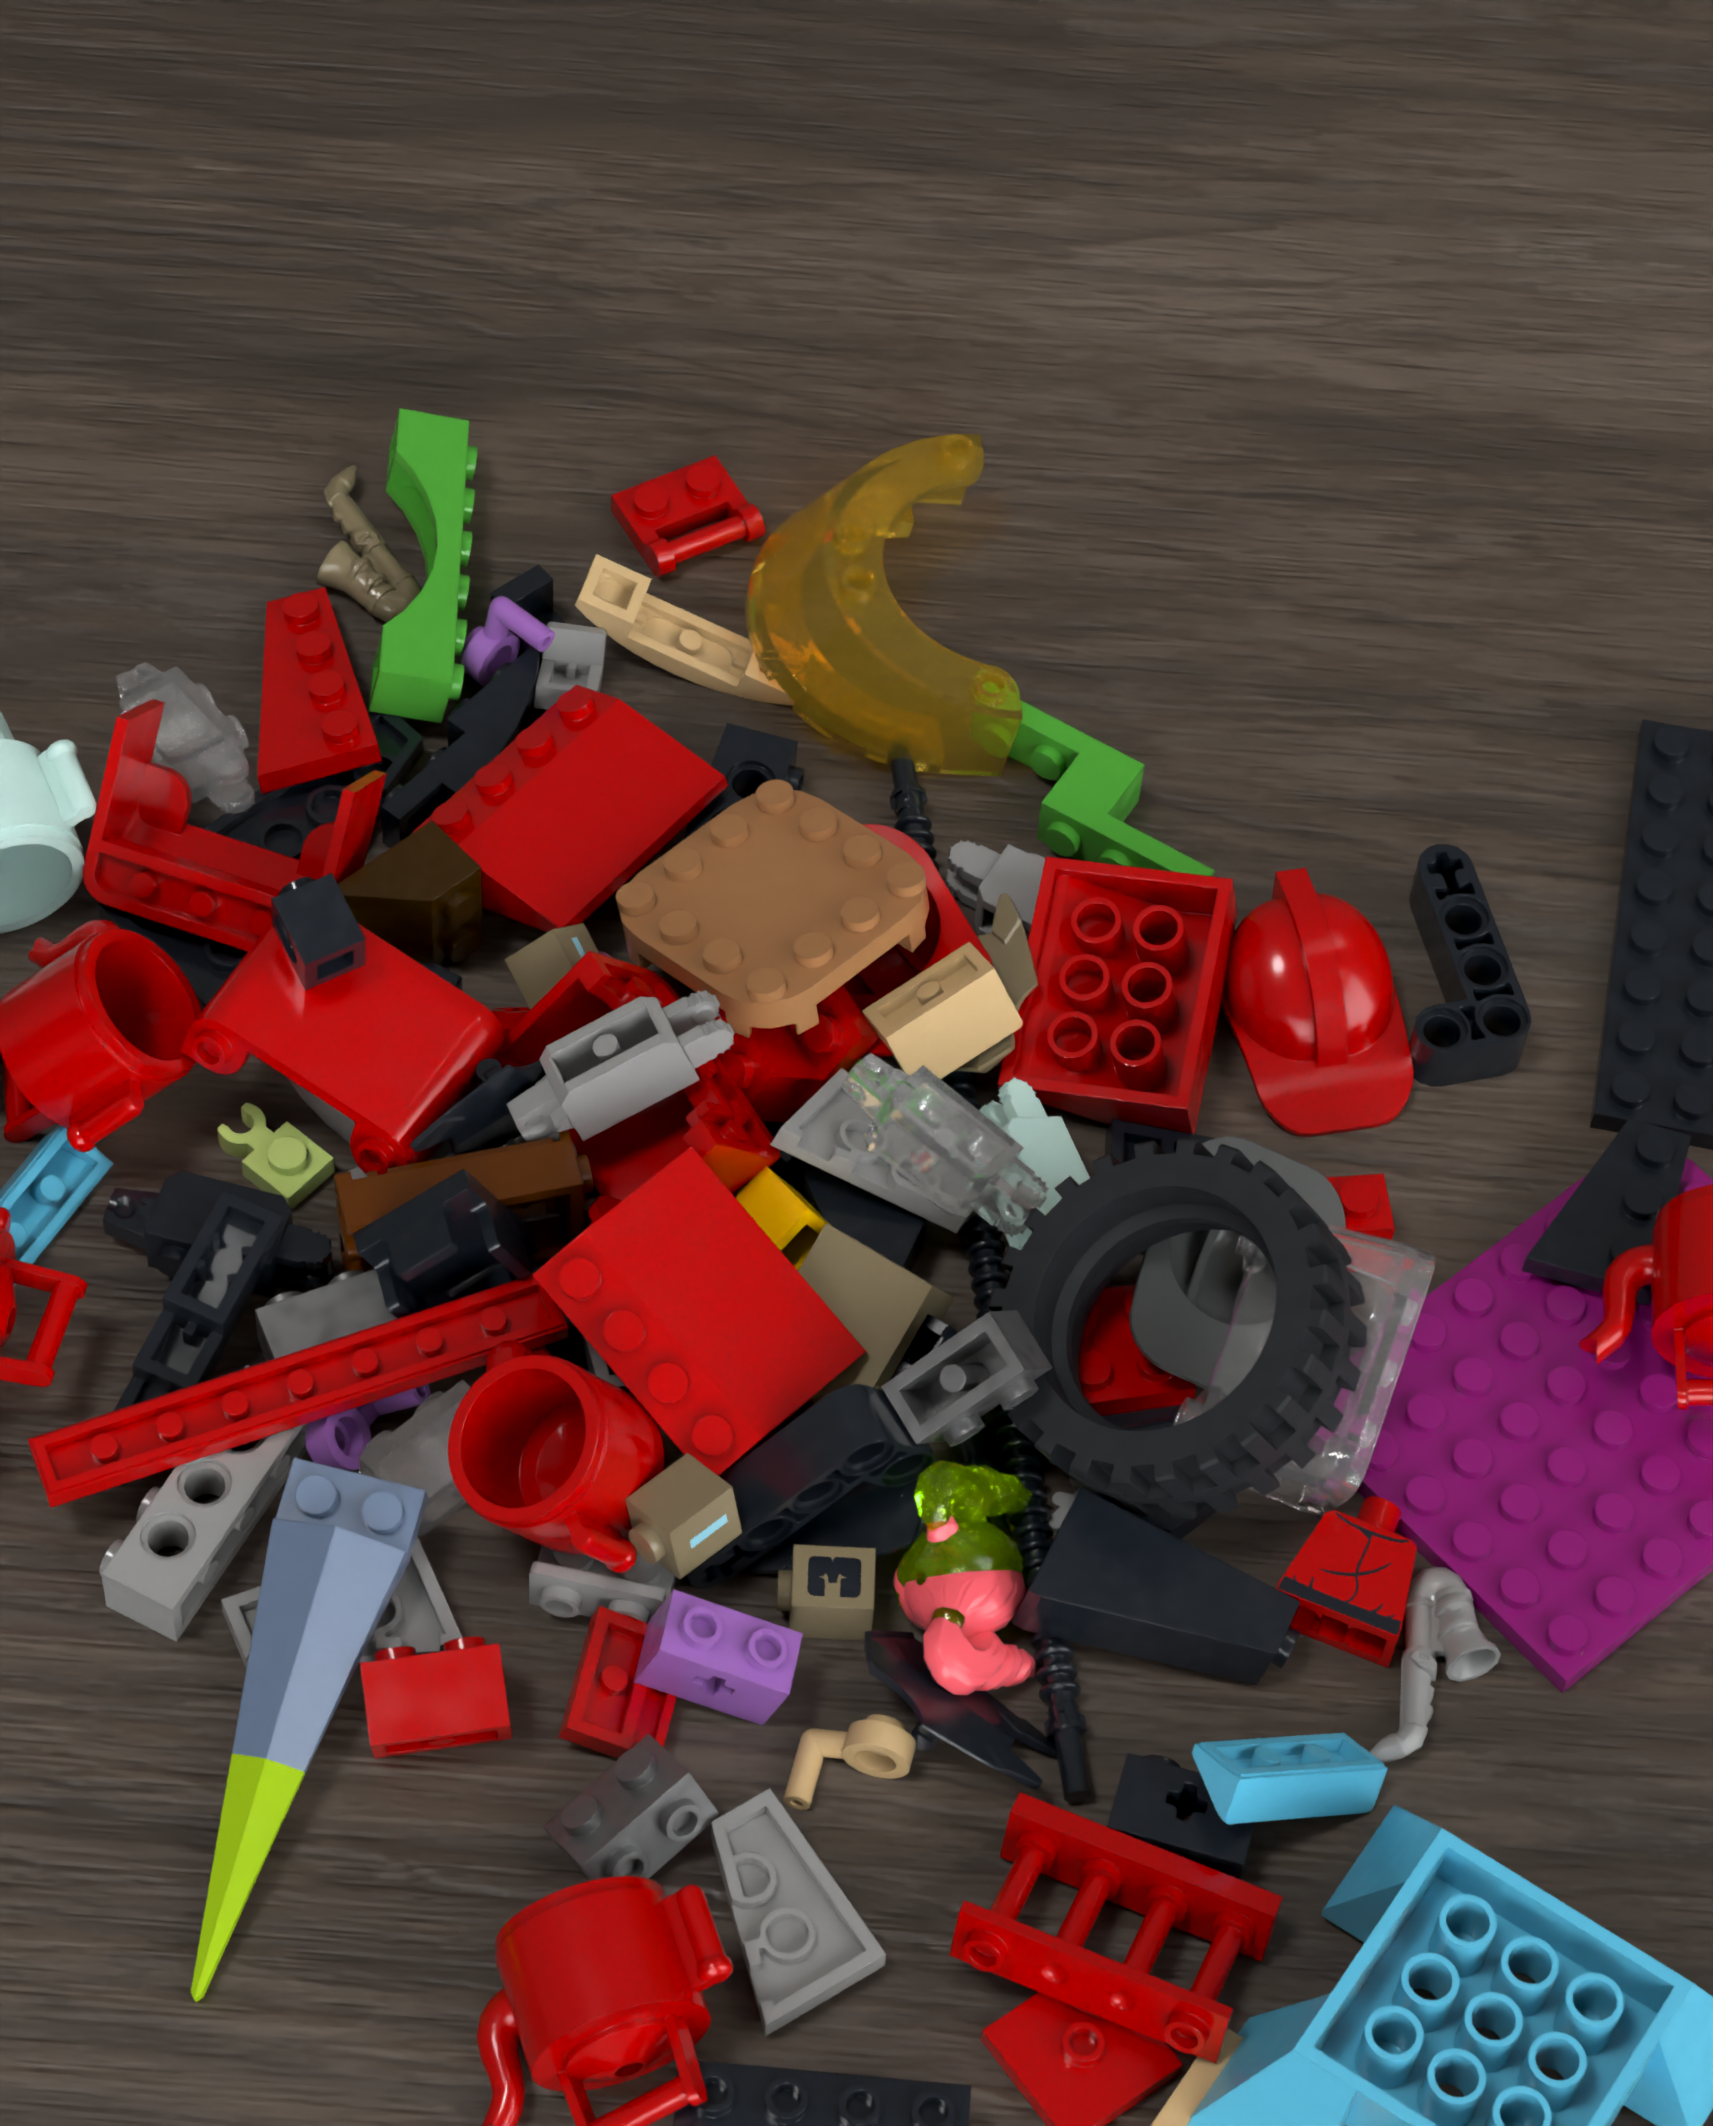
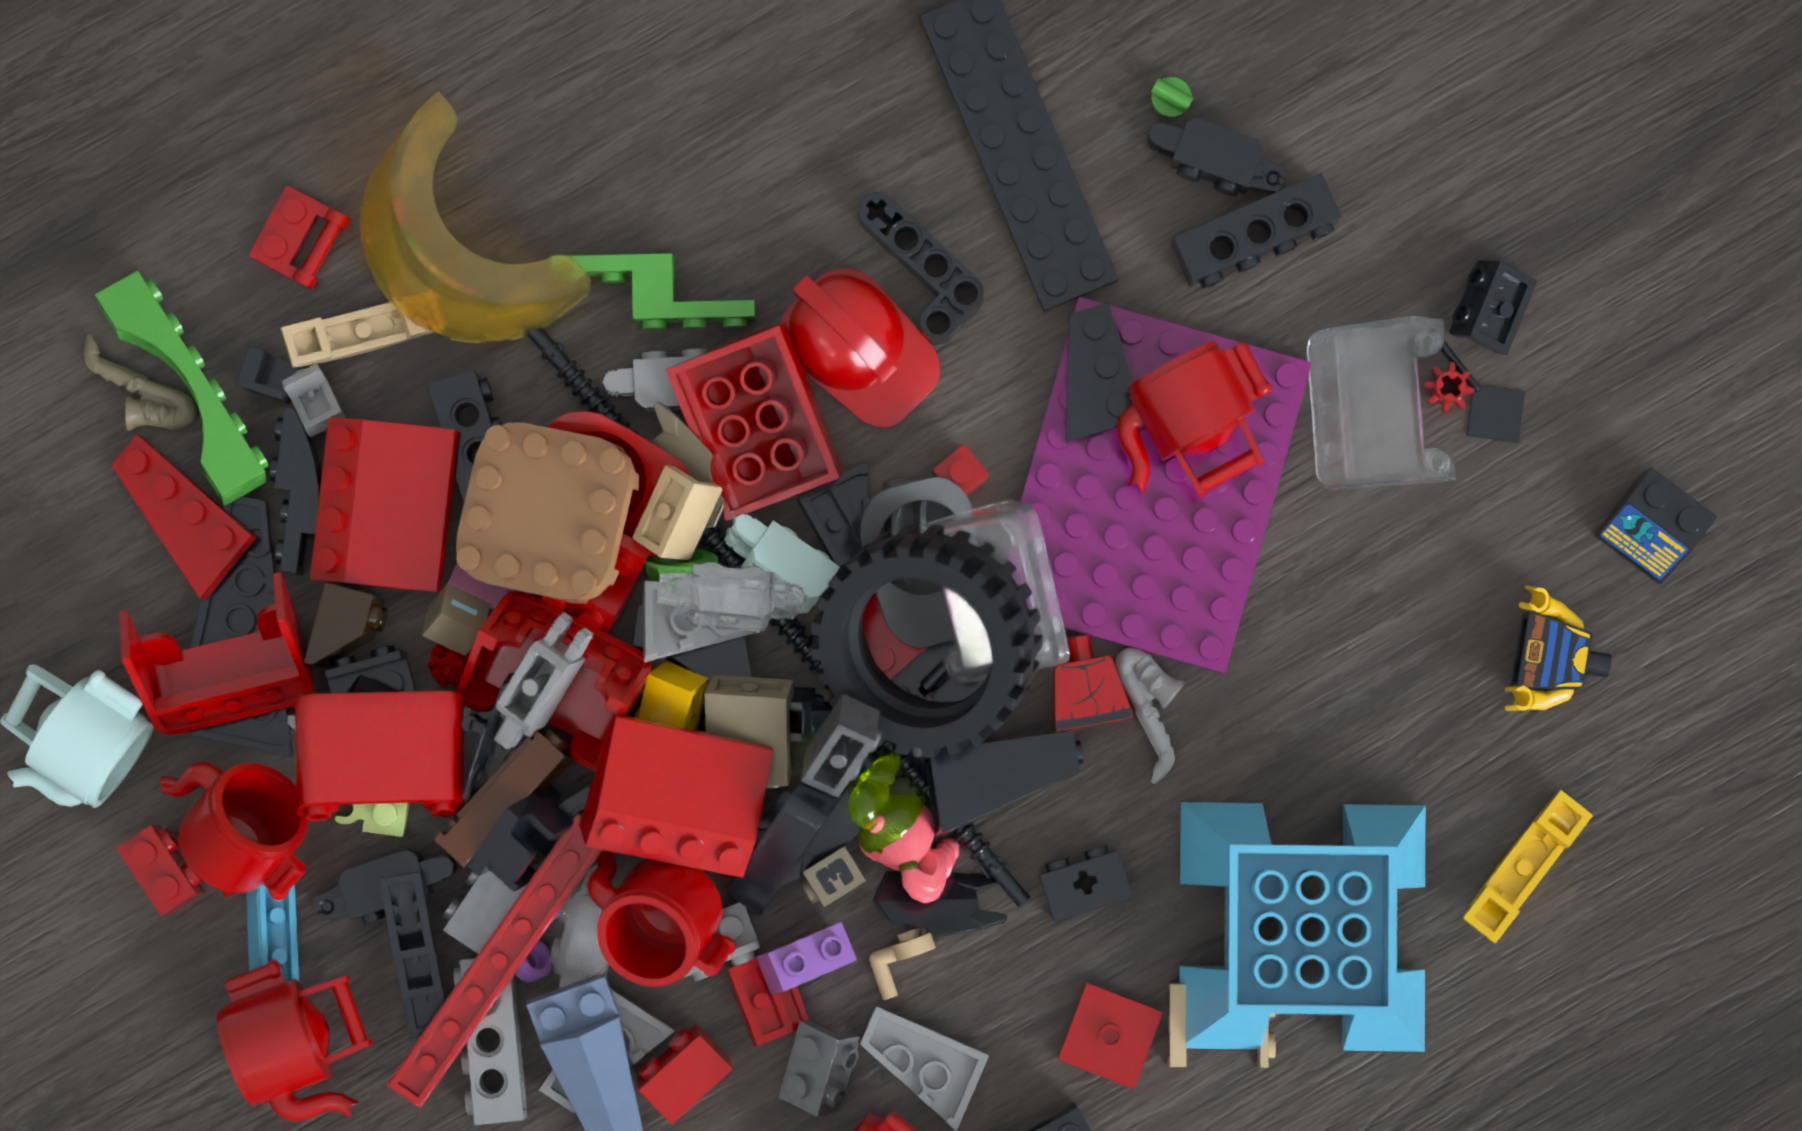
camera: 30 degrees left, 30 degrees up
(193, 735) = (149, 598): clear hinge -> none
(317, 930) = (331, 725): black brick -> none
(494, 644) = (259, 411): medium lavender plate -> none
(682, 1516) = (743, 909): dark tan brick -> none
(1136, 1876) = (1064, 939): red fence -> none
(1289, 1777) = (1124, 832): medium azure slope -> none

